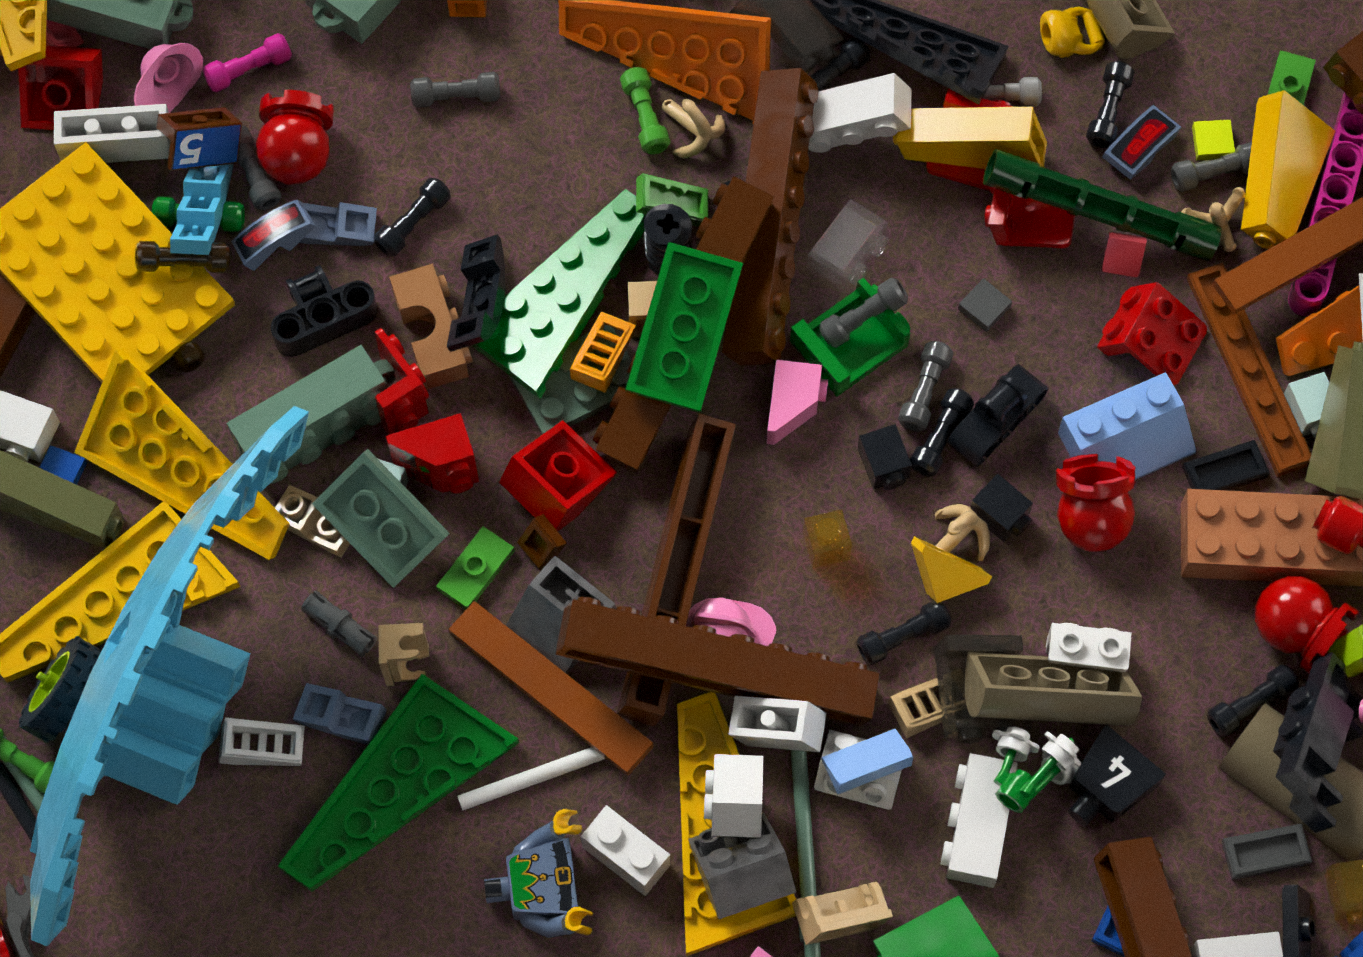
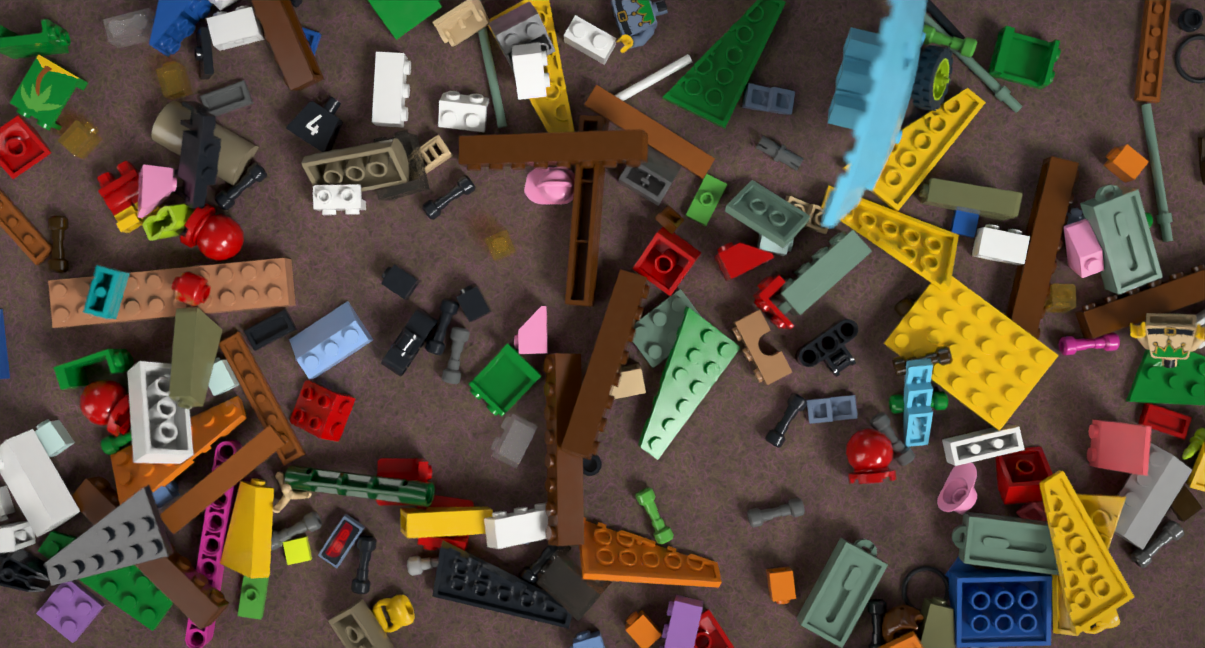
camera: 170 degrees right, 20 degrees up
(201, 137) = (928, 447): panel -> none
(219, 74) = (894, 523): dark pink piece -> none
(244, 756) = (809, 66): white slope -> none
(280, 227) = (870, 394): slope -> none
(397, 646) = (742, 134): tan hinge -> none
(484, 295) = (732, 368): black slope -> none
(593, 377) = (659, 325): light orange slope -> none
(656, 190) = (627, 453): bright green plate -> none
(664, 225) = (631, 430): black piece -> none
(684, 327) = (604, 354): green plate -> none
(694, 121) = (621, 508): tan piece -> none
(777, 723) = (512, 121): white brick -> none
(867, 761) = (458, 107): light blue slope -> none
(889, 296) = (483, 402): dark grey piece -> none
(945, 573) = (426, 236): yellow slope -> none
(961, 527) = (424, 261): tan piece -> none
(985, 305) = (426, 415): dark grey tile -> none
(1020, 788) = (347, 124): plant -> none
(1095, 503) = (342, 290): red tile -> none
(1123, 254) = (344, 460): coral slope -> none

